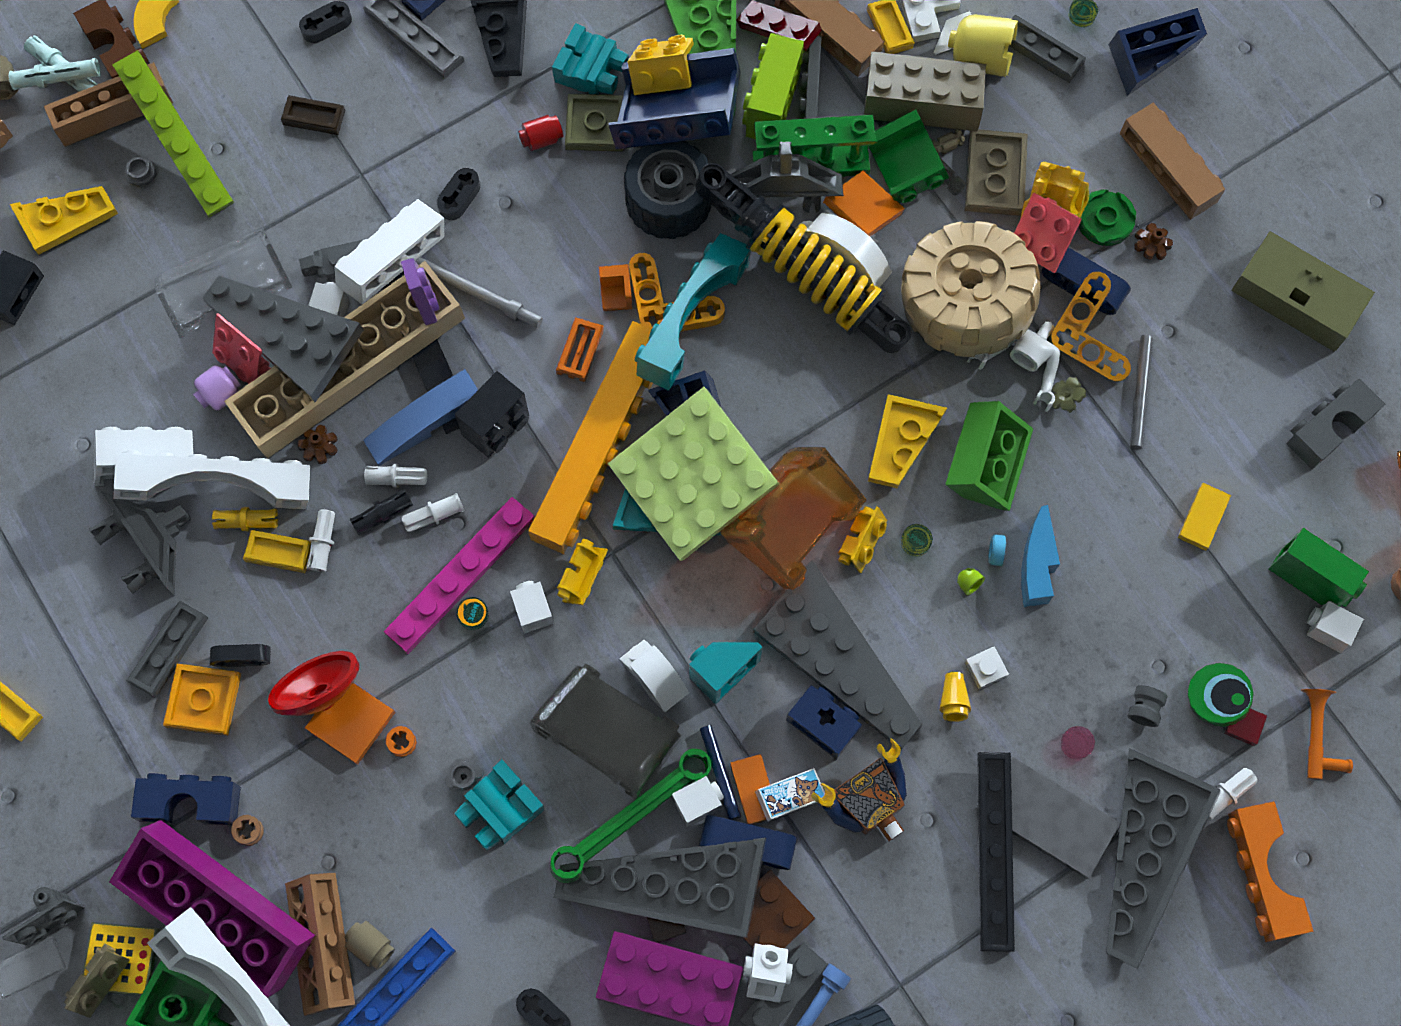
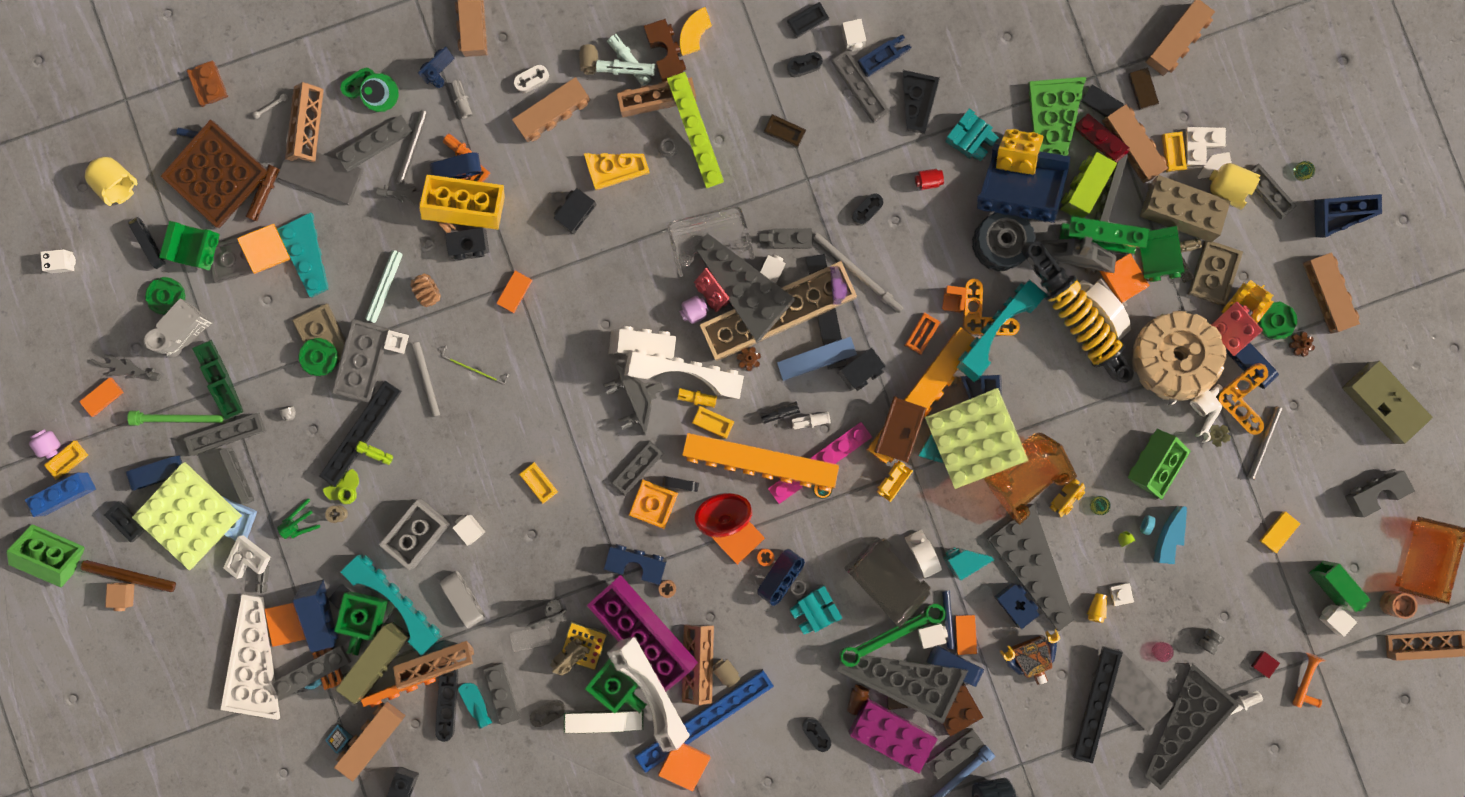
camera: 15 degrees right, 15 degrees up
(321, 541) = (740, 423): white axle -> none
(361, 588) = (761, 461): none -> light orange brick
(380, 257) = (818, 244): white brick -> none
(395, 475) = (793, 391): white axle -> none
(429, 764) = (781, 577): none -> dark blue beam
(531, 606) = (859, 494): white brick -> none
(571, 476) = (900, 429): none -> reddish brown door
(589, 120) = (965, 177): olive tile -> none
(598, 937) = (858, 697): none -> reddish brown cone
(767, 972) = (950, 745): white brick -> none
(789, 794) = (987, 643): tile -> none
(901, 437) = (1108, 439): yellow wing -> none
(1220, 694) = (1256, 644): tile -> none
(1278, 912) = (1252, 729): orange arch -> none

